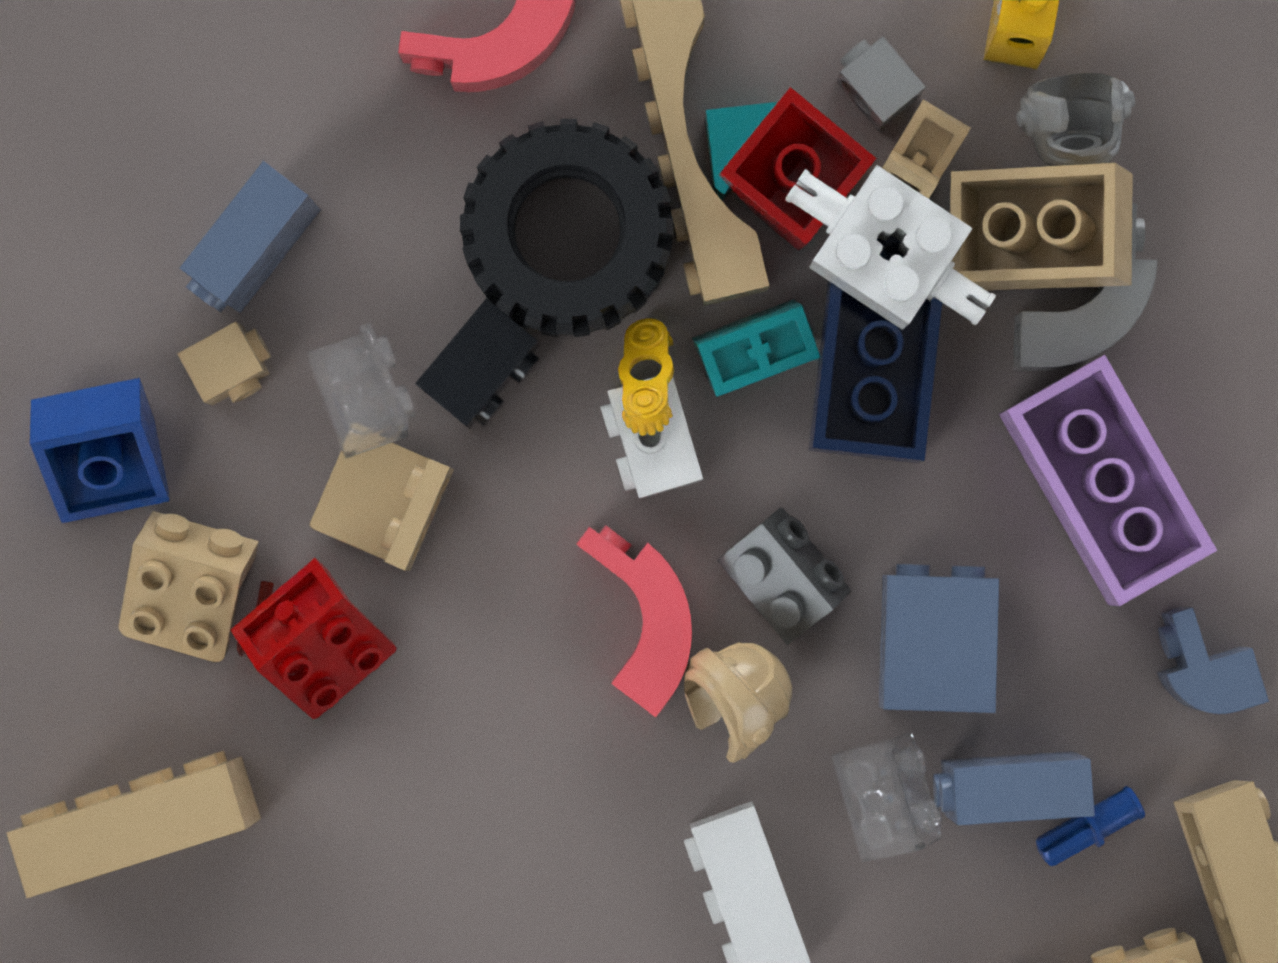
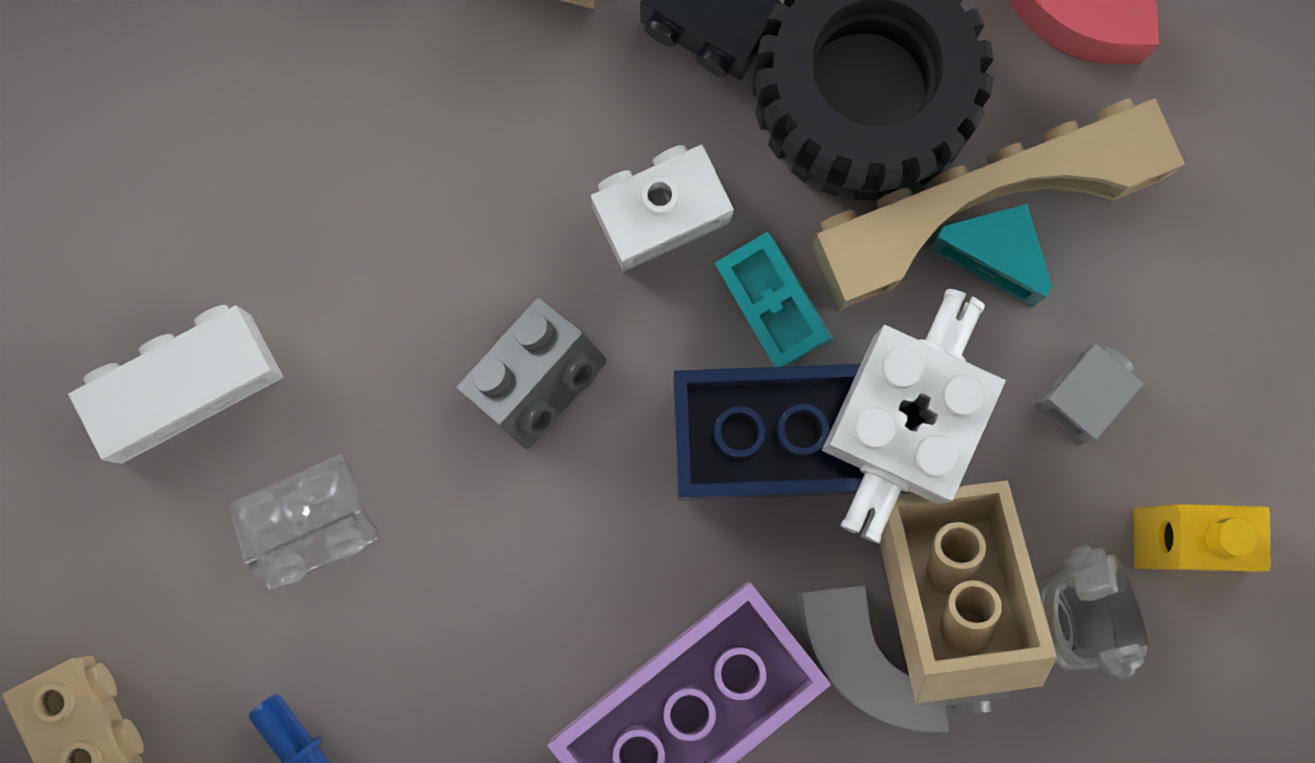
camera: 80 degrees right, 5 degrees down
(646, 401) = (697, 182): yellow piece -> none
(666, 634) = (469, 247): coral arch -> none
(741, 686) = (393, 337): tan helmet -> none
(777, 153) = (1015, 293): red slope -> none
(926, 148) = (1024, 451): tan brick -> none
(939, 640) = (482, 550): sand blue brick -> none
(1015, 788) = (325, 657): sand blue brick -> none

